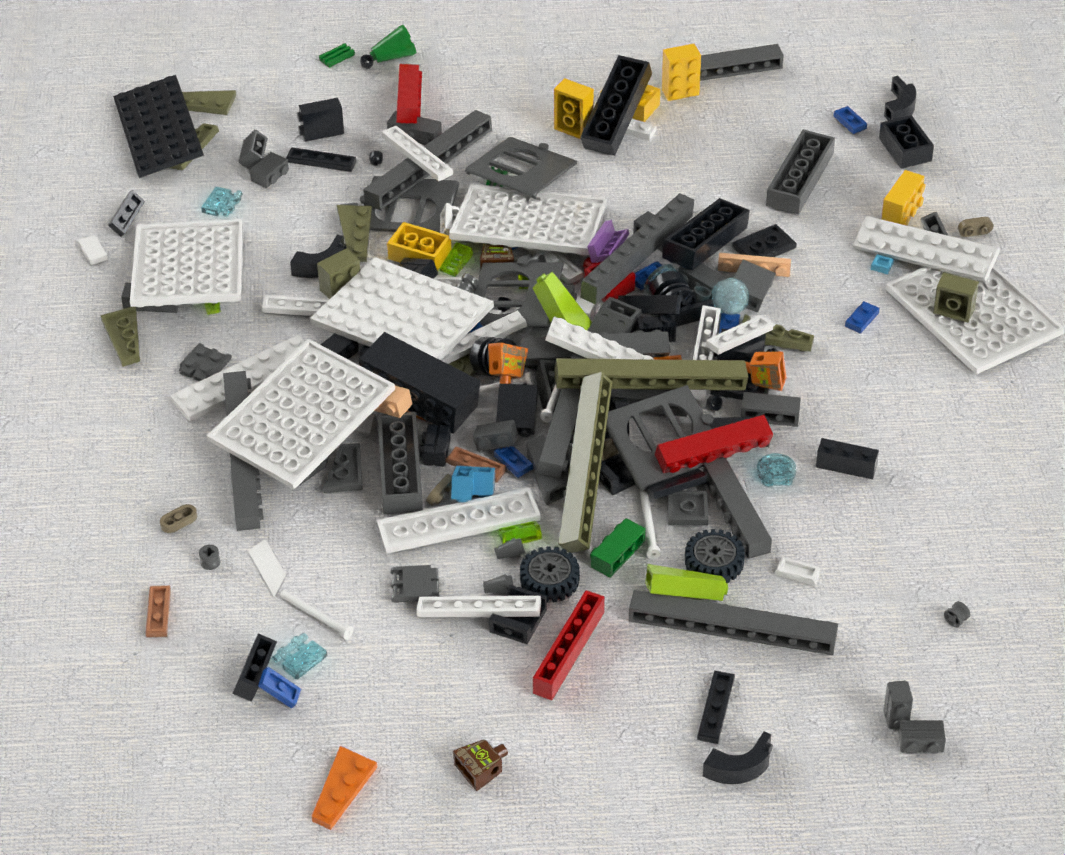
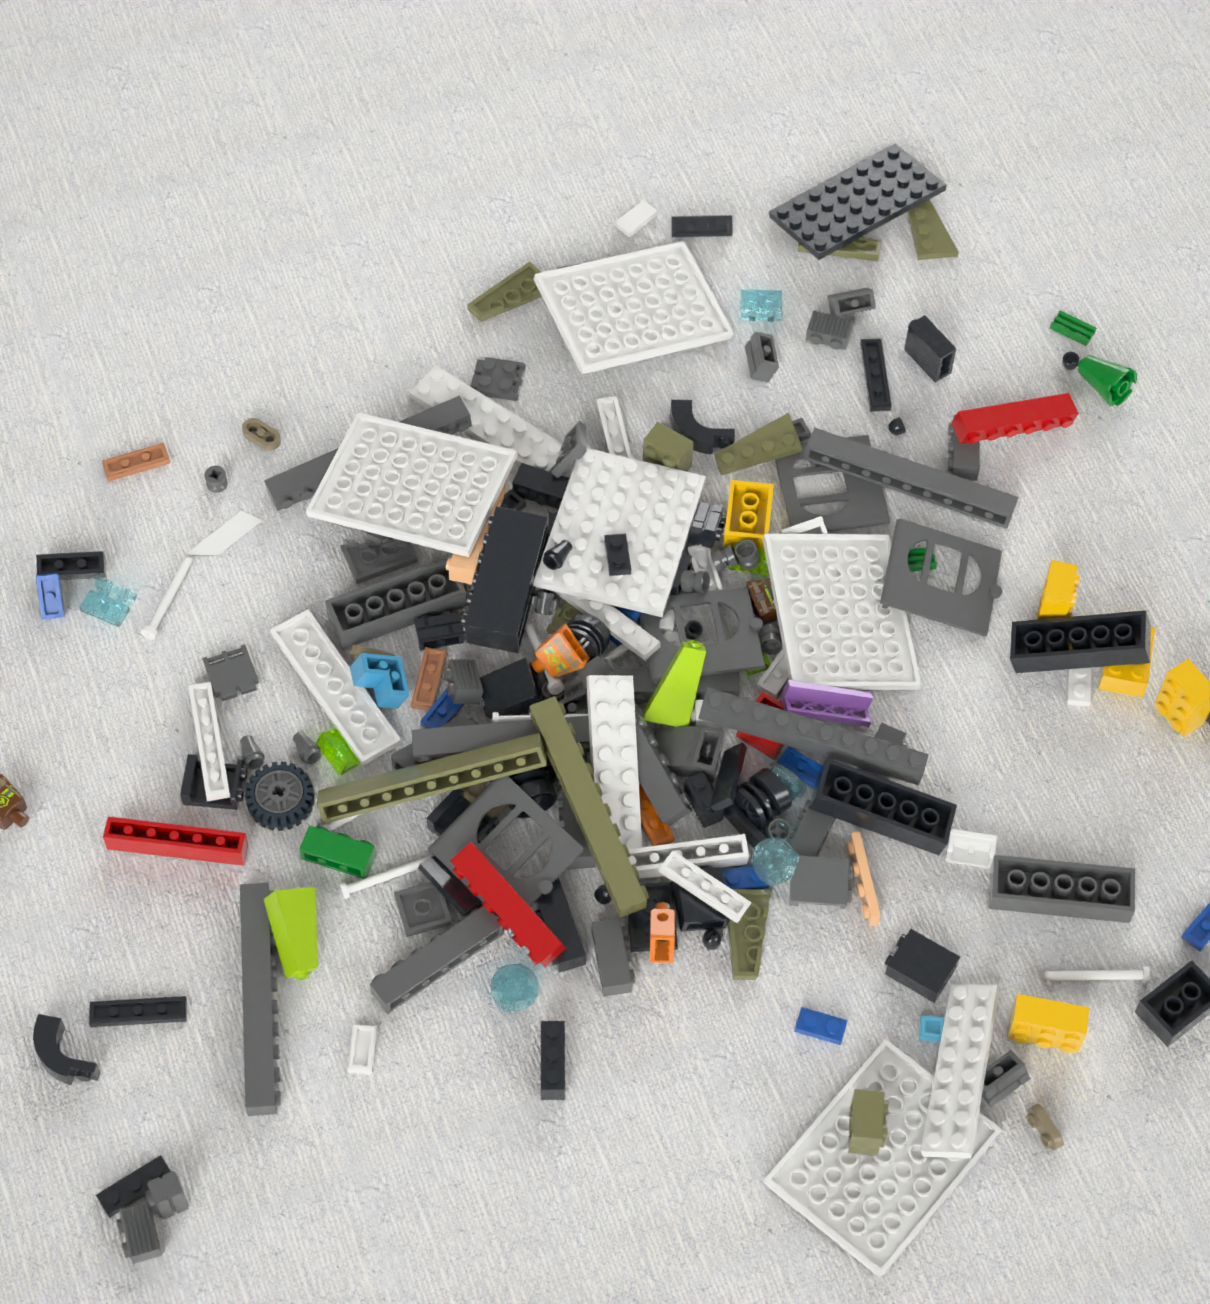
camera: 70 degrees right, 15 degrees up
(276, 207) = (761, 356): none -> dark grey brick
(307, 323) = (572, 448): none -> dark grey wing
(417, 153) = (895, 459): white plate -> none
(417, 340) = (556, 556): none -> black cone
(431, 311) = (617, 554): none -> black plate
(450, 267) = (724, 558): none -> dark grey wheel
(456, 253) = (747, 554): none -> dark grey wheel
(715, 554) = (344, 968): wheel -> none
(756, 207) = (970, 848): none -> white hinge
(766, 242) = (914, 882): black tile -> none
(834, 253) = (921, 965): none -> black brick
(875, 156) = (1143, 974): none -> white bar
(876, 736) = (131, 1187): none -> black plate
(957, 614) = (336, 1236): dark grey wheel -> none

